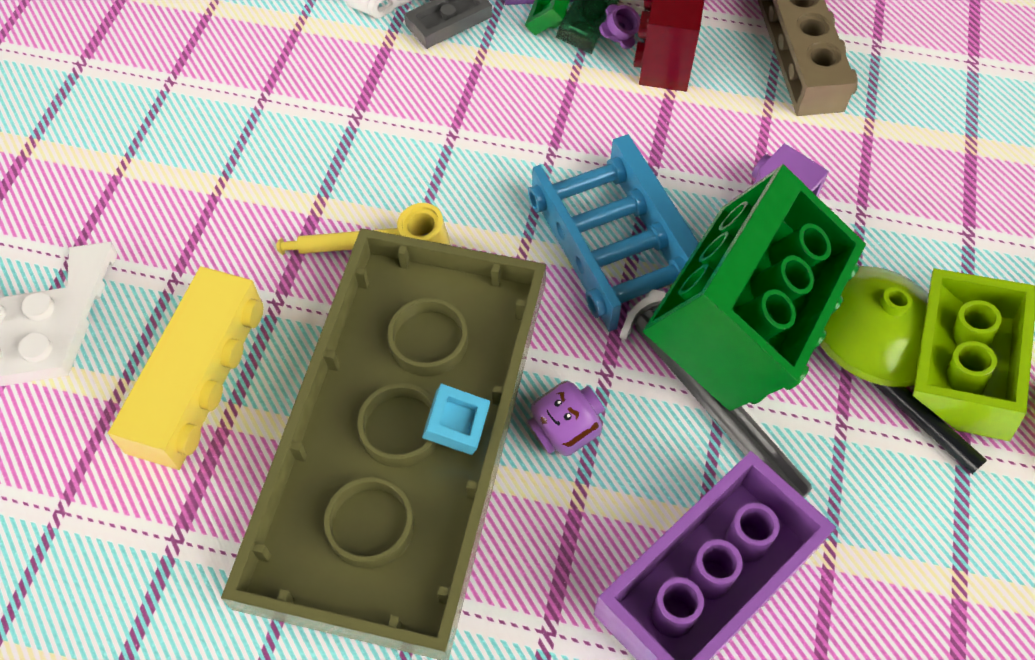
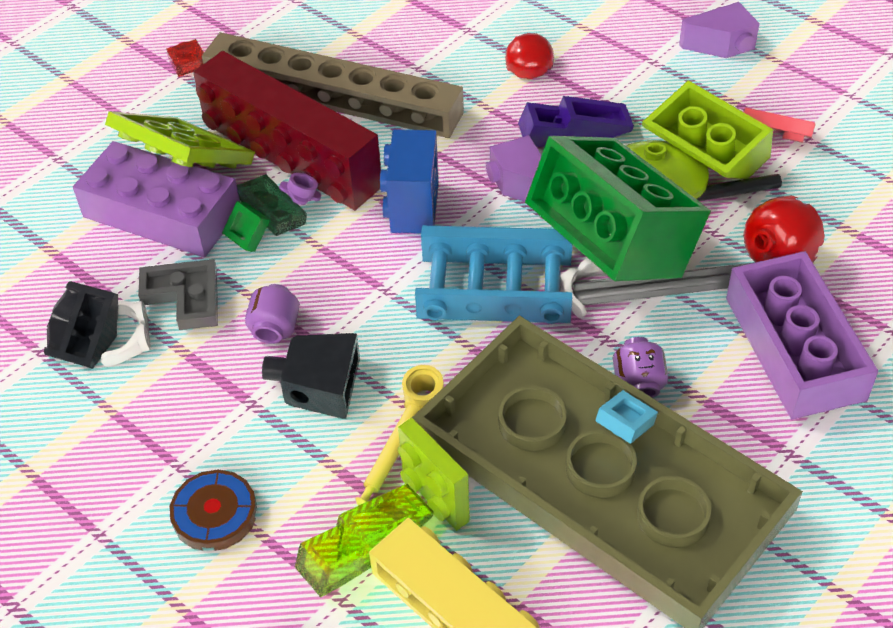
camera: 60 degrees left, 10 degrees down
(222, 141) = (213, 510): none -> tile
(232, 251) = (343, 551): none -> clear neon green slope
(310, 278) = (434, 474): none -> lime plate
(406, 143) = (317, 372): none -> black torso
(456, 76) = (272, 313): none -> medium lavender head
(684, 99) = (410, 180): none -> blue brick
(860, 492) = (782, 229): none -> red cylinder
(901, 212) = (574, 118): none -> dark purple slope
(973, 128) = (529, 56): none -> red hair

